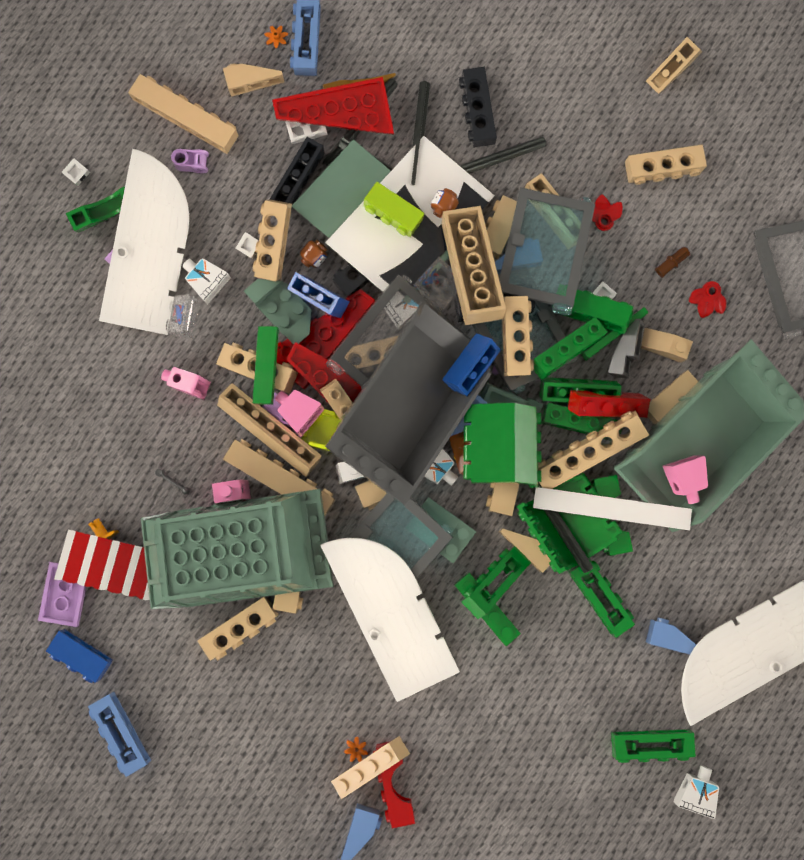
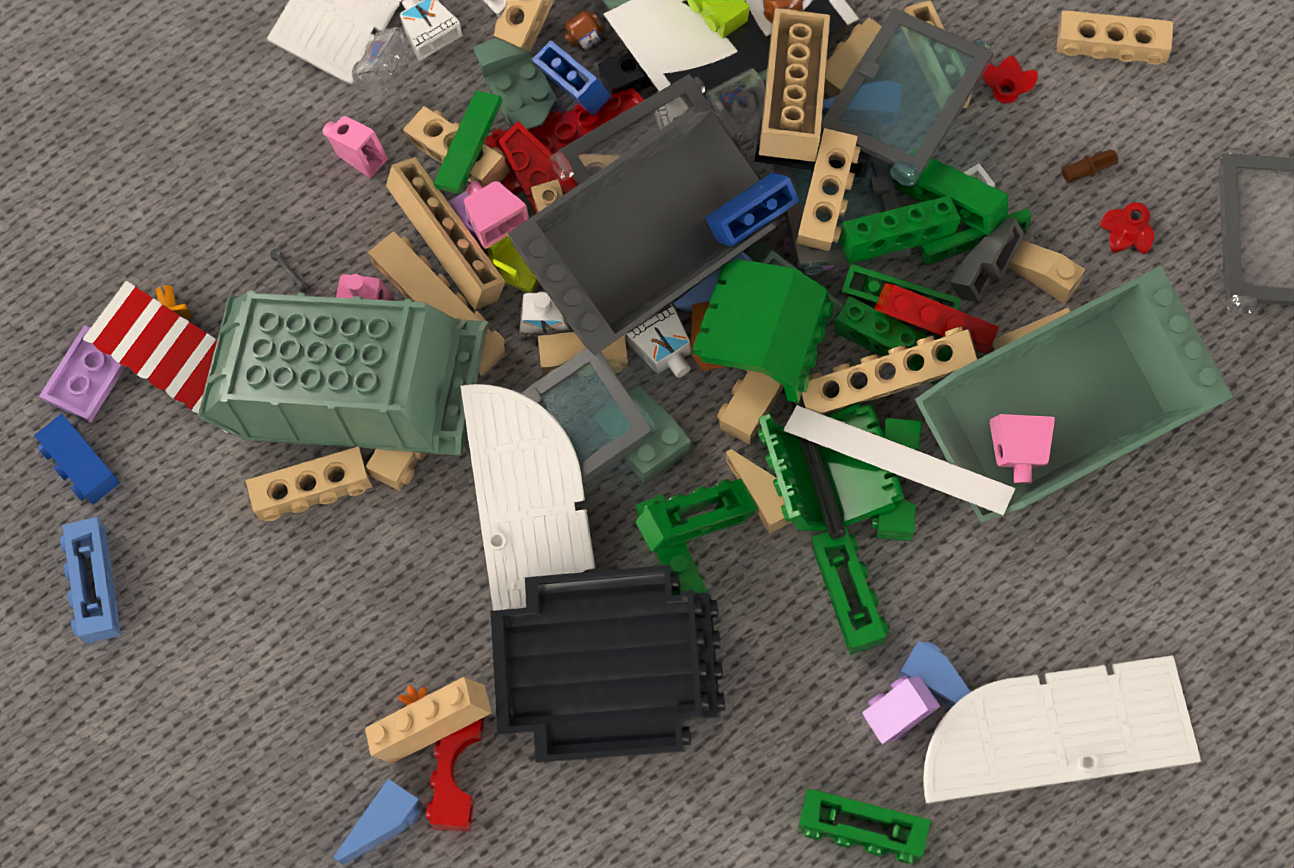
camera: 25 degrees right, 15 degrees down
(469, 695) = (606, 664): none -> black panel
(656, 668) = (900, 708): none -> brick

